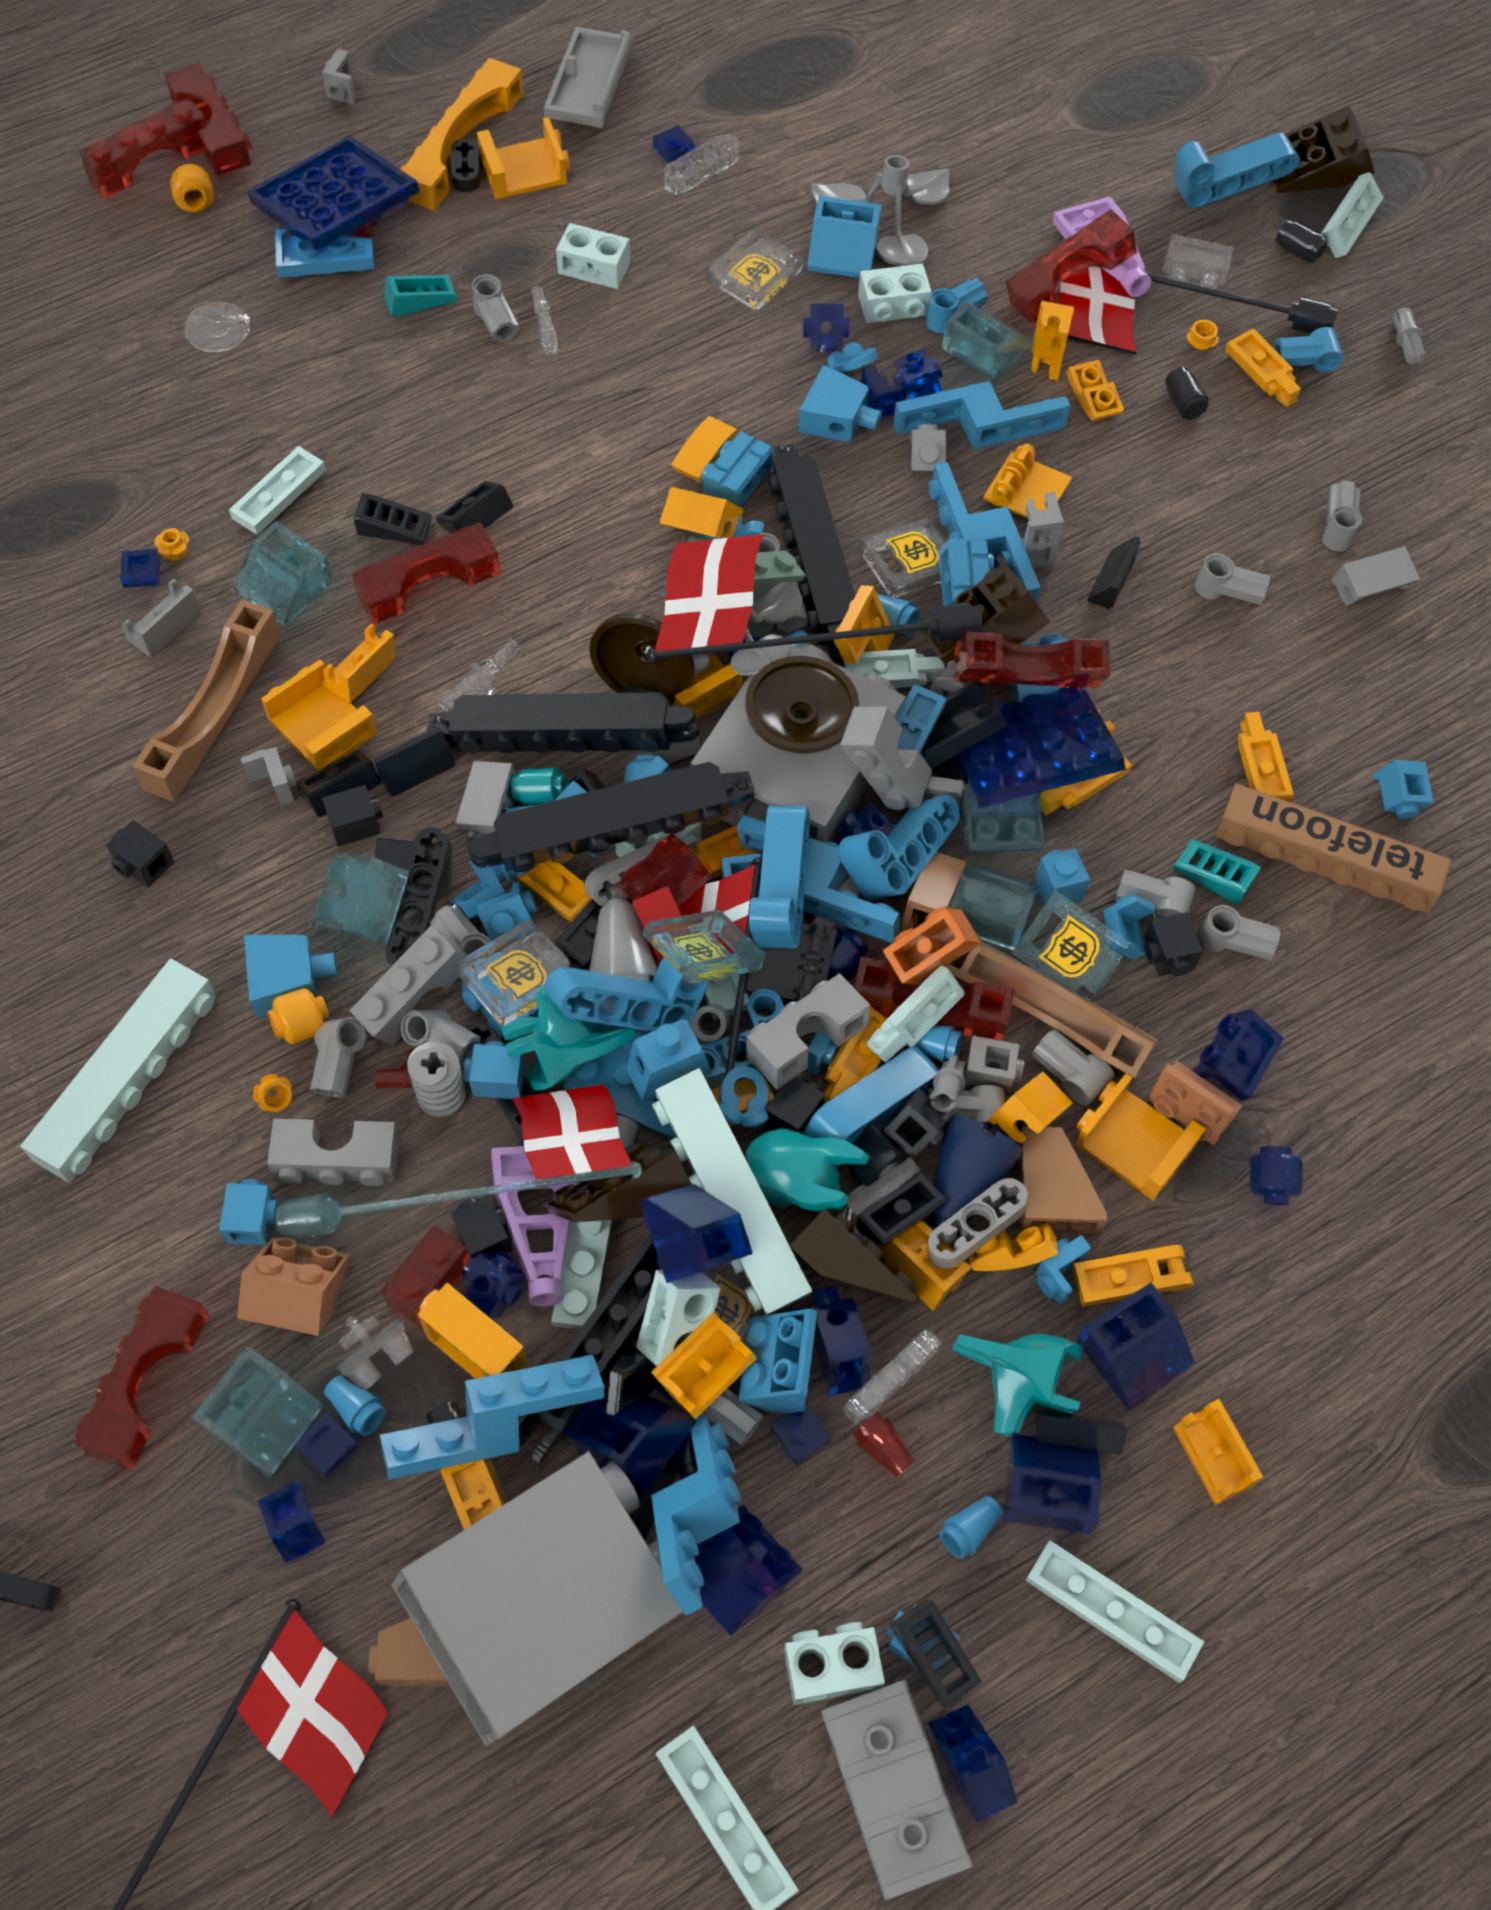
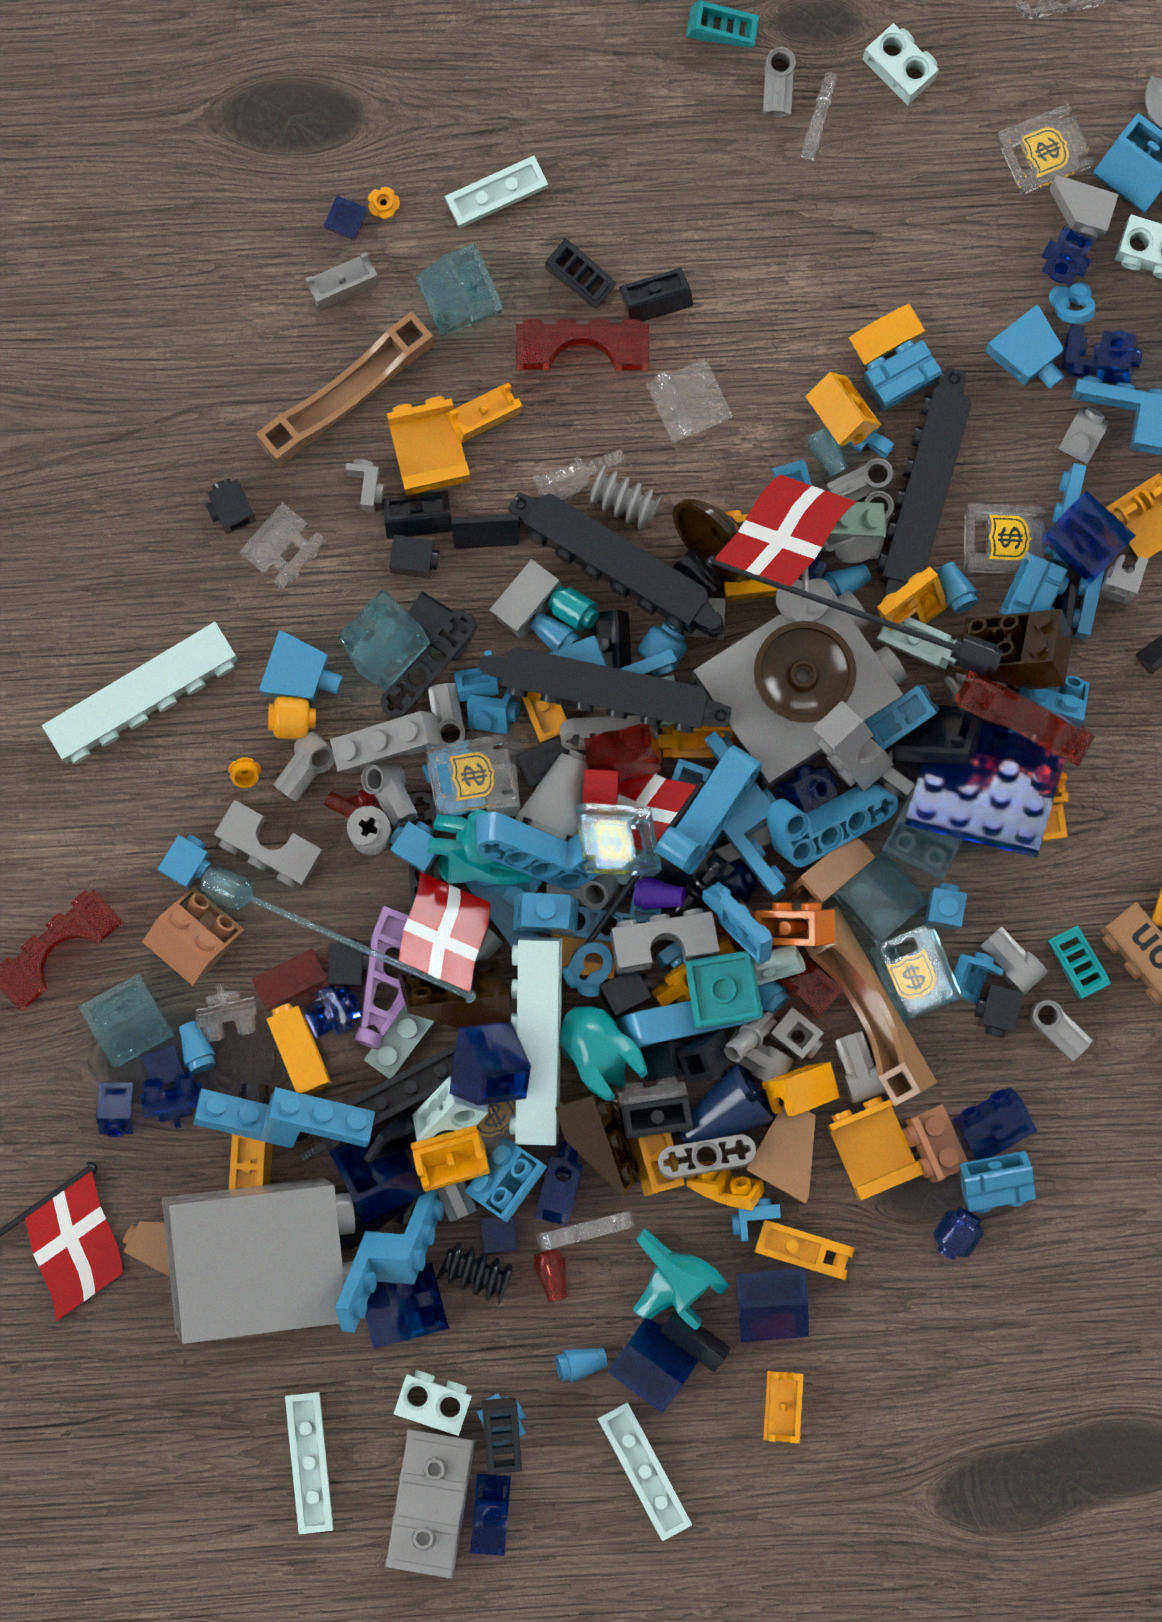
camera: 25 degrees right, 20 degrees up
(200, 864) = (274, 539): none -> clear plate
(337, 1483) = (173, 1102): none -> clear blue hips
(537, 673) = (624, 498): none -> light grey piece
(552, 575) = (689, 400): none -> clear hinge
(774, 988) = (657, 894): none -> dark purple cone
(800, 1484) = (475, 1272): none -> black piece
(812, 286) = (1084, 206): none -> light grey slope
(876, 967) = (739, 923): none -> dark azure hinge
(896, 1043) = (723, 989): none -> teal tile
(987, 509) = (1088, 537): none -> clear blue slope
(1281, 1103) = (997, 1182): none -> dark azure brick

